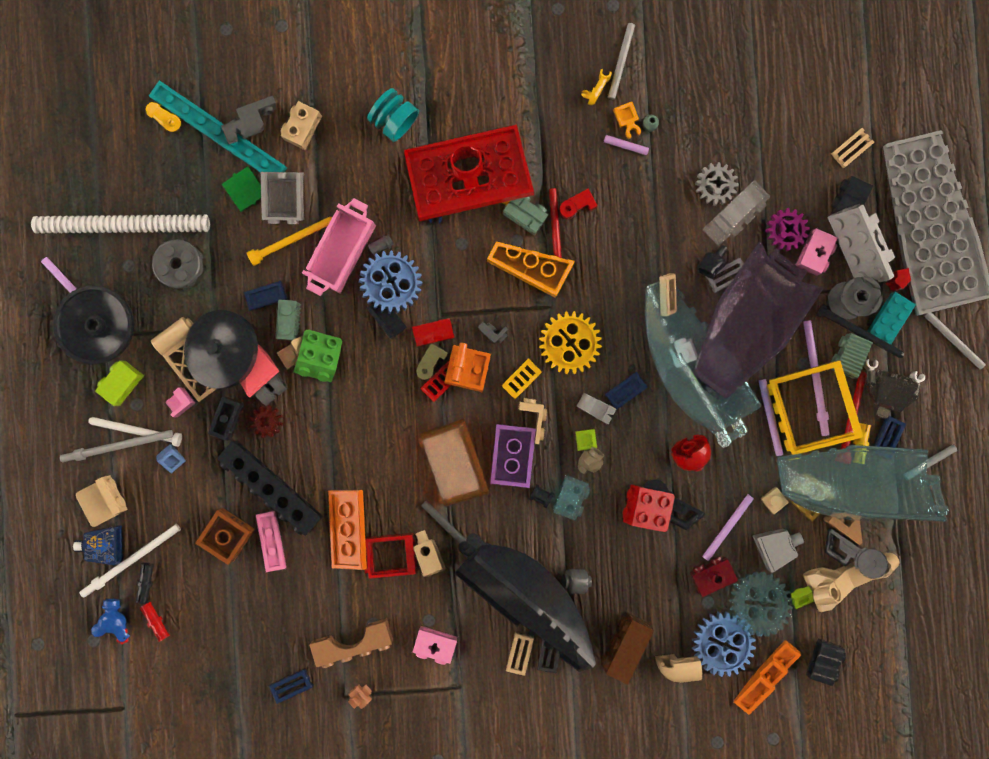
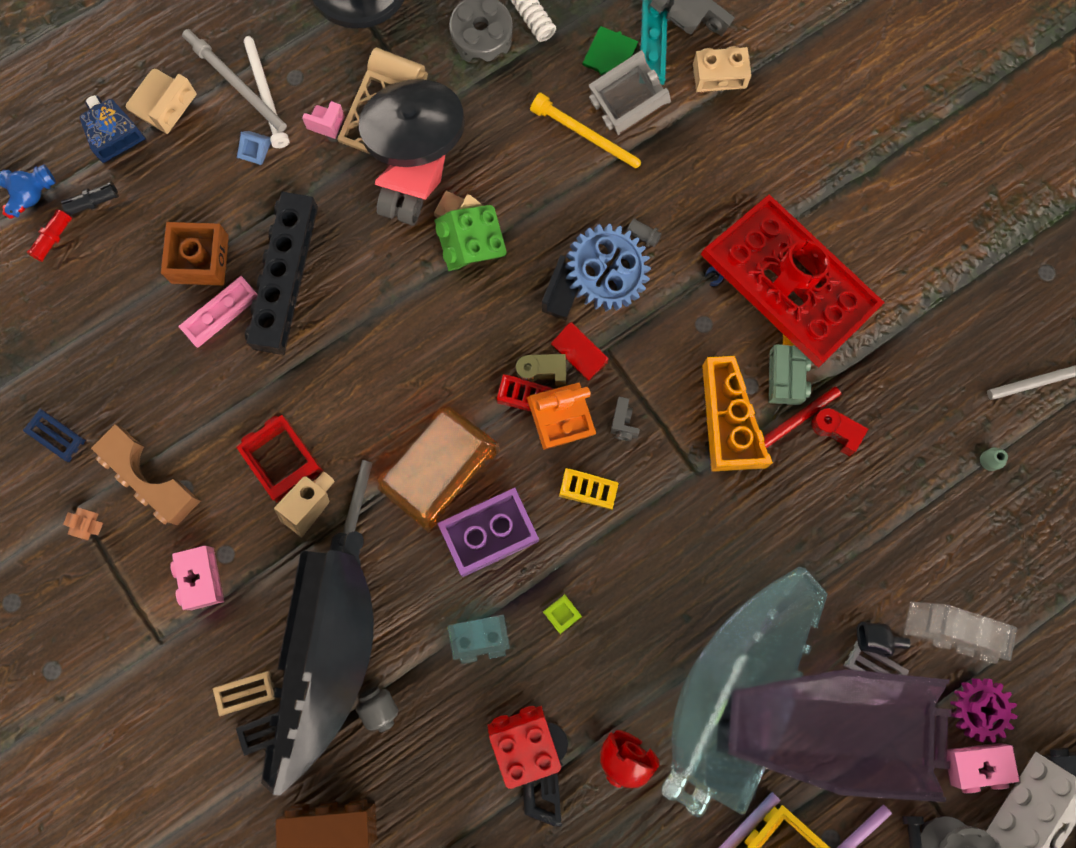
camera: 60 degrees right, 10 degrees down
(99, 582) = (66, 151): white bar -> none
(118, 383) = (307, 42): lime brick -> none
(226, 418) = (335, 176): black brick -> none
(265, 296) = (504, 142): dark blue tile -> none
(273, 420) = (353, 218): clear red gear -> none
(287, 320) = (492, 179): sand green brick -> none
(339, 248) = (610, 188): bright pink container -> none
(347, 529) = (282, 389): orange tile -> none
(392, 114) = (801, 156): teal wheel -> none
(531, 405) = (563, 517): tan bracket -> none
(541, 496) = (459, 599): black bush -> none
(584, 331) = (692, 530): yellow gear -> none
(590, 460) = (540, 634): dark tan rock -> none
(594, 95) = (986, 371): yellow piece -> none
(596, 408) = (609, 602): light grey leg -> none
(626, 145) = (948, 446): lavender piece -> none
(626, 390) = (653, 627): dark blue tile -> none
(627, 116) = (981, 426): light orange plate -> none
(668, 294) = (806, 603): tan tile -> none
(687, 349) = (754, 669): white brick -> none
(718, 172) = (988, 592): light grey gear -> none

